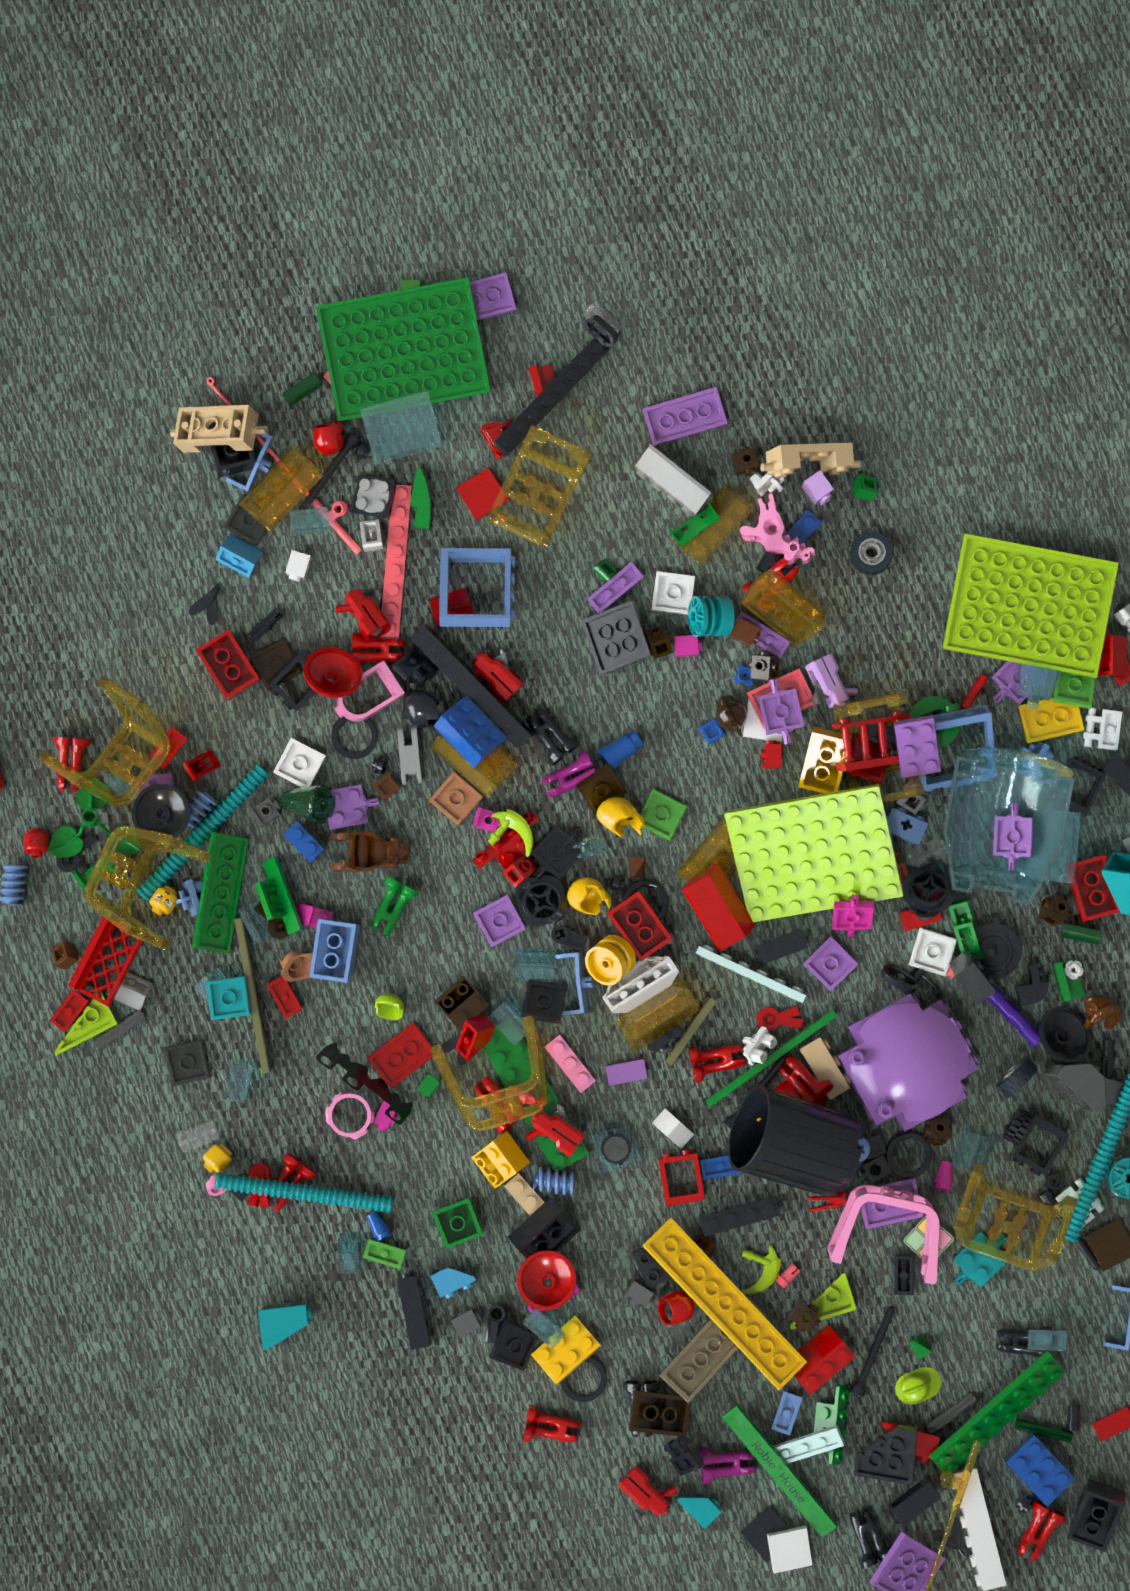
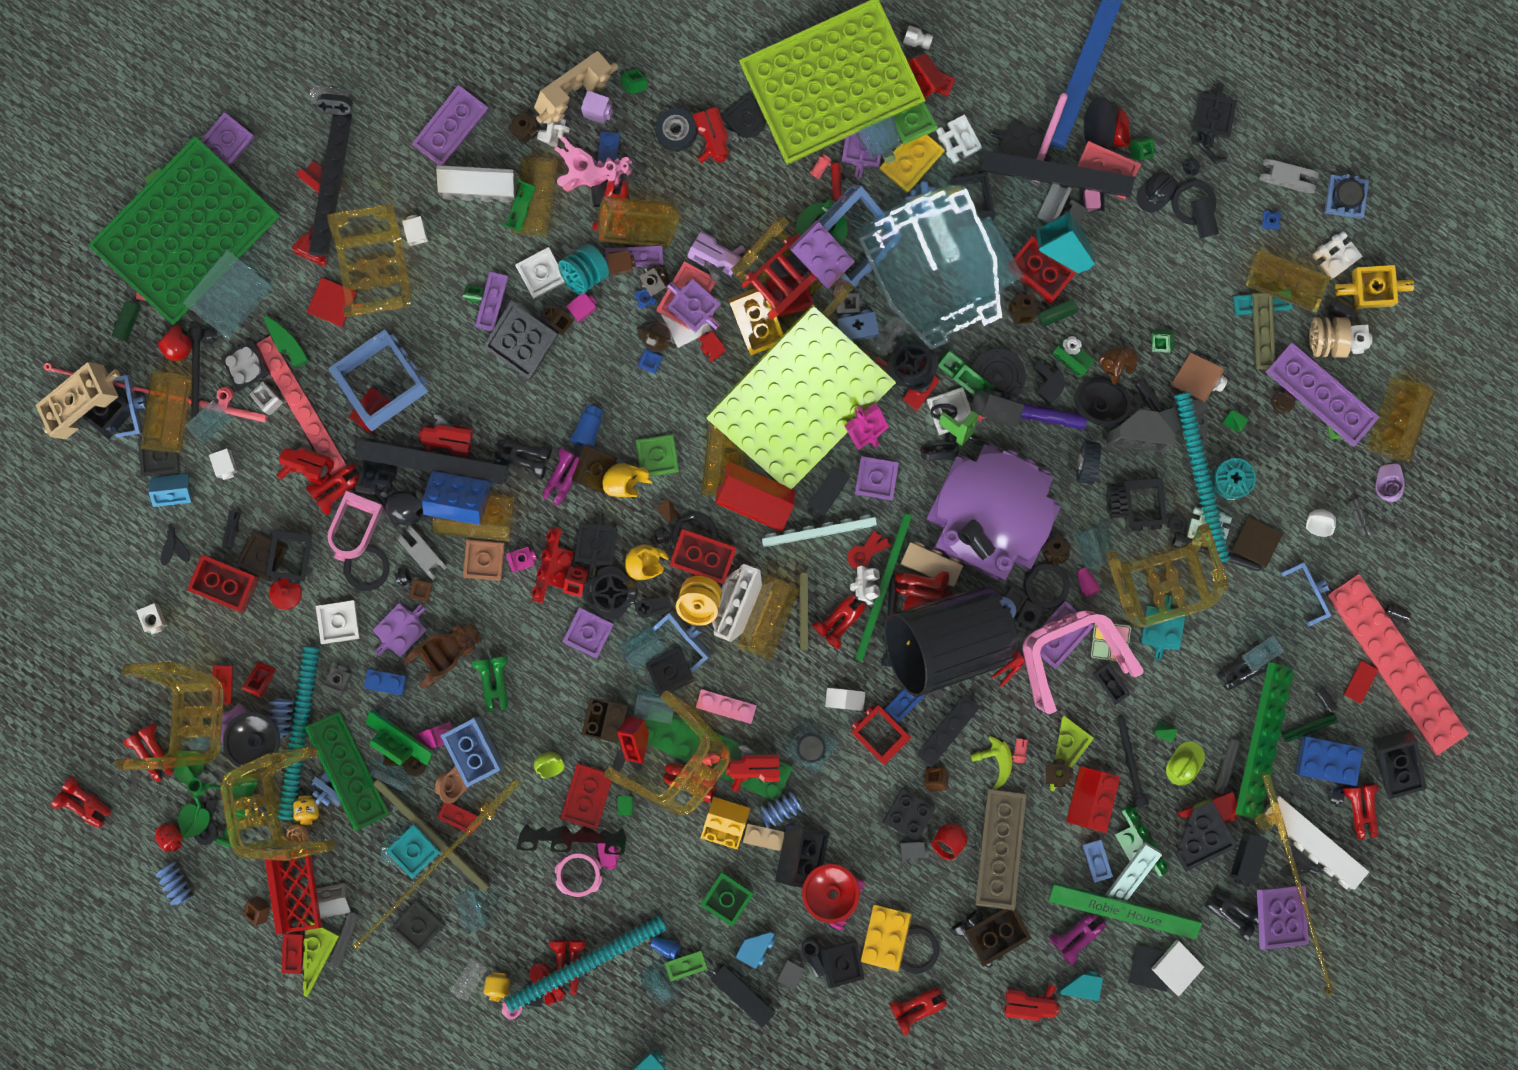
camera: 35 degrees left, 0 degrees up
(143, 914) = (298, 832): none -> medium nougat plate
(146, 643) = (146, 612): none -> white brick
(271, 709) = (284, 594): none -> red piece
(310, 1009) = (487, 811): none -> clear yellow piece
(311, 802) = (368, 646): clear green cone -> none
(334, 665) = (310, 529): red dish -> none
(518, 823) = (544, 544): lime piece -> none
(544, 1327) = (856, 932): clear light blue slope -> none
(592, 845) = (619, 520): clear light blue plate -> none
(594, 483) = (415, 230): none -> white brick
(626, 1072) = (776, 681): medium lavender tile -> none
(662, 1043) = (788, 637): black plate -> none
(683, 1458) = (1041, 957): black plate -> none
(724, 1303) = (986, 809): yellow plate -> none
(875, 1069) = (973, 535): none -> black piece
(901, 580) = (715, 134): none -> red piece
(929, 975) = (961, 431): none -> bright green piece
(936, 583) = (745, 117): none -> black tile
(970, 669) = (820, 166): none -> coral pin
(1013, 836) = (949, 273): medium lavender plate -> none

